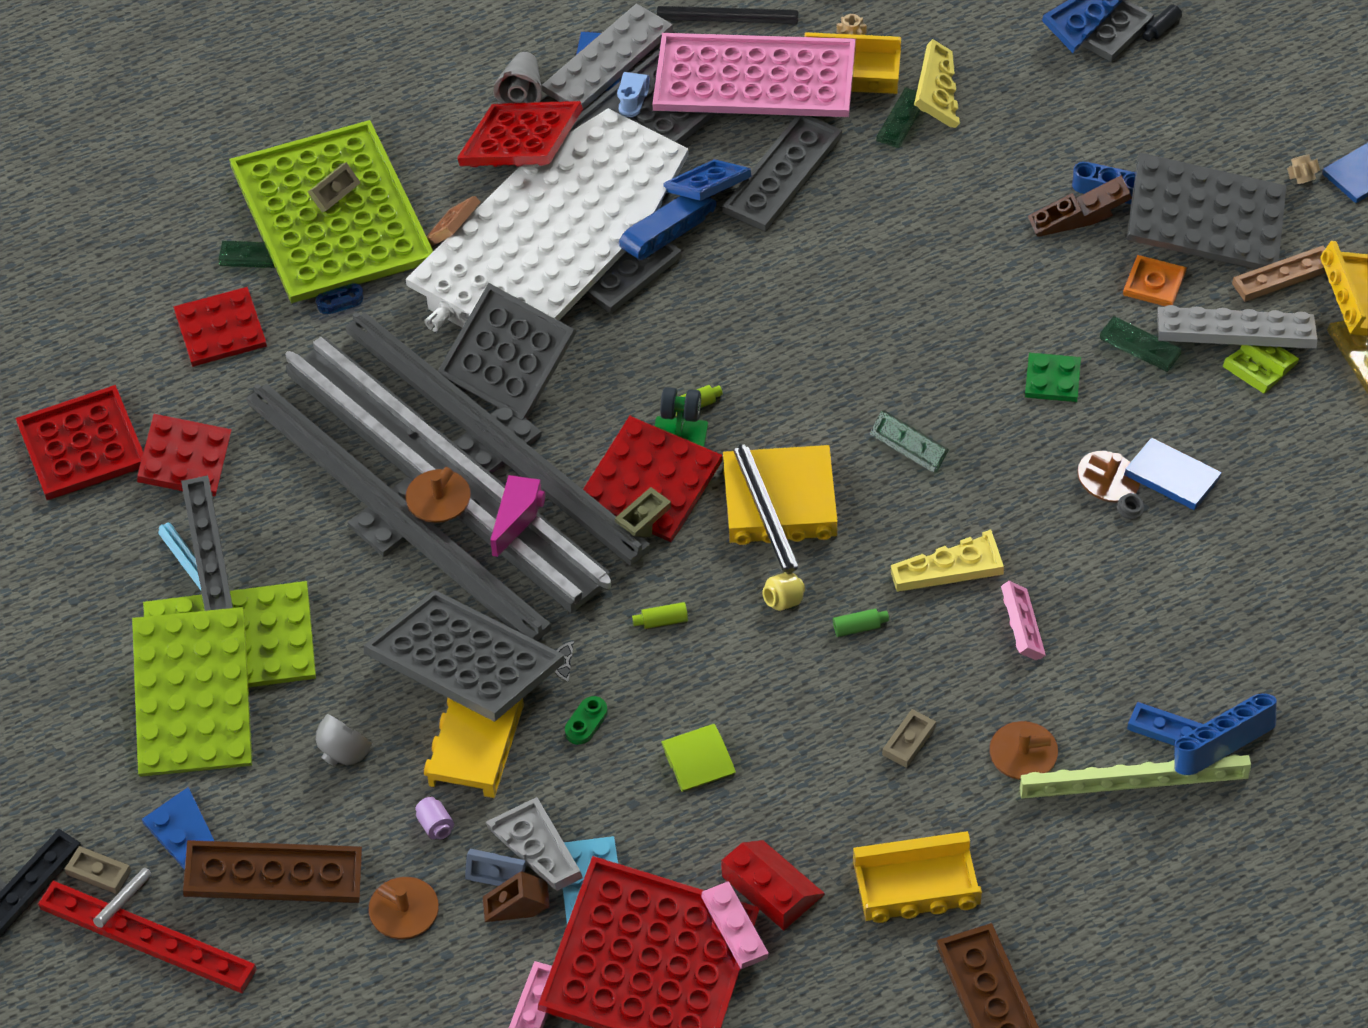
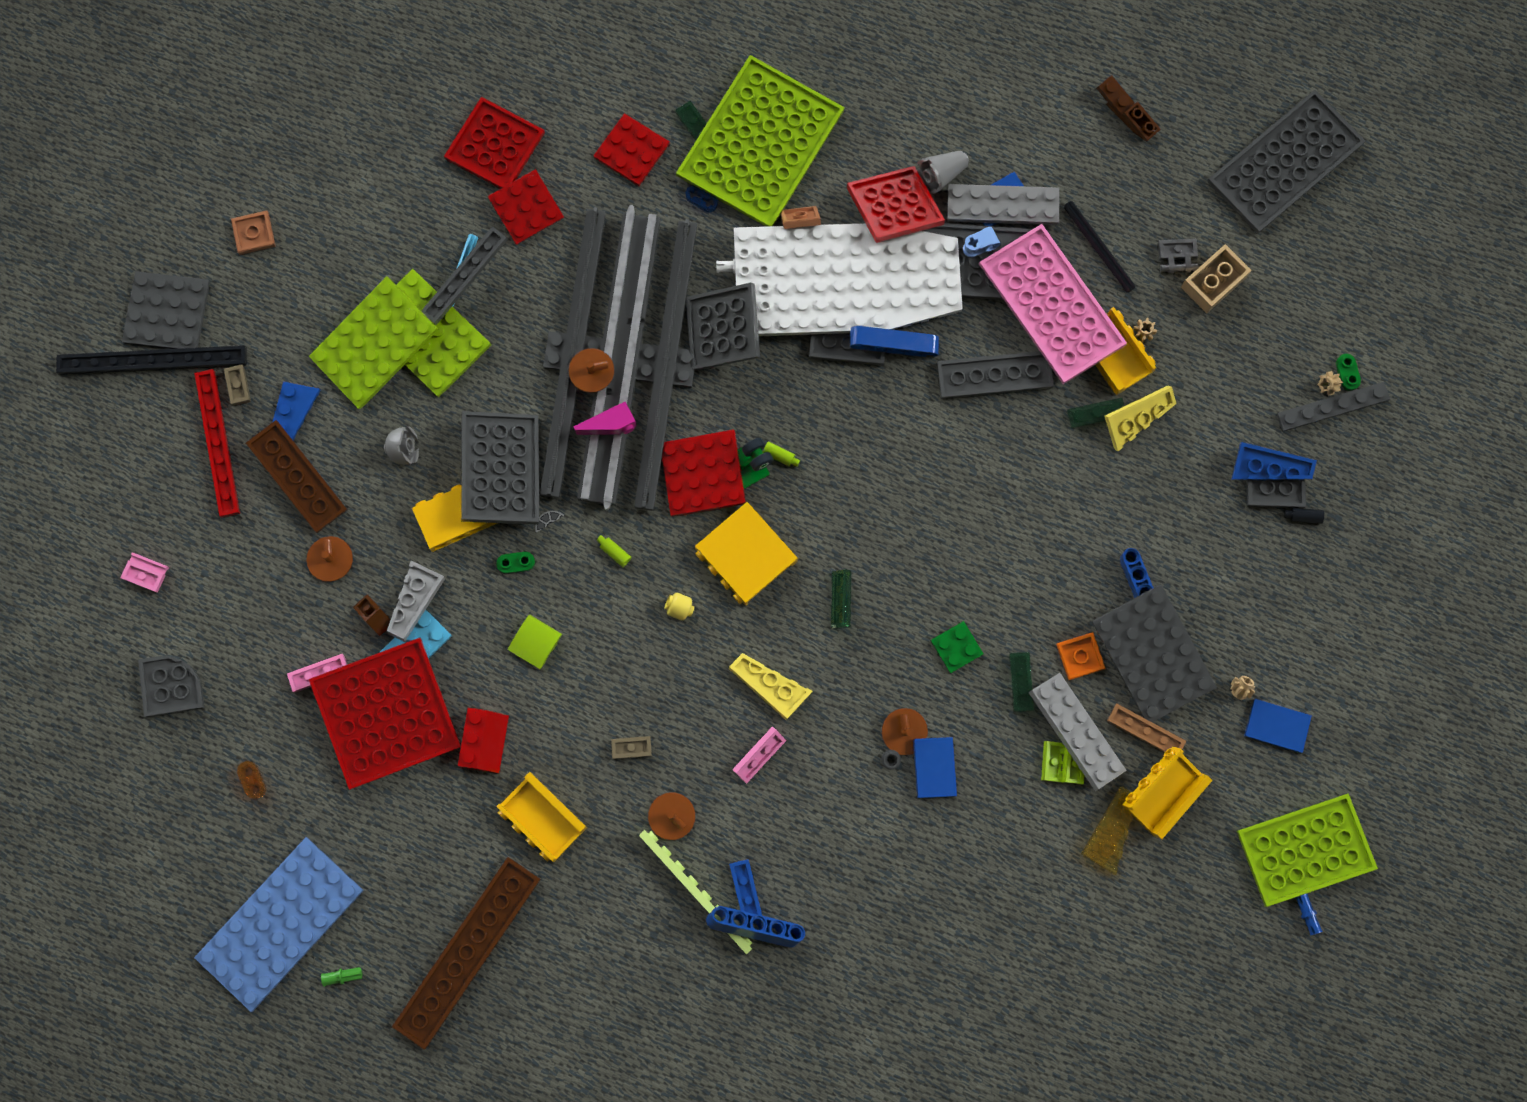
camera: 50 degrees right, 25 degrees up
(122, 897) = (227, 412): light grey bar -> none
(334, 187) = (770, 132): dark tan plate -> none
(434, 818) = (392, 532): lavender brick -> none
(491, 867) = (382, 586): sand blue plate -> none
(643, 512) = (667, 491): olive slope -> none
(707, 179) = (947, 338): blue tile -> none
(734, 925) = (436, 743): bright pink plate -> none
(765, 509) = (720, 557): axle -> none
(859, 622) = (691, 663): bright green cylinder -> none
(1080, 211) = (1100, 574): reddish brown slope -> none

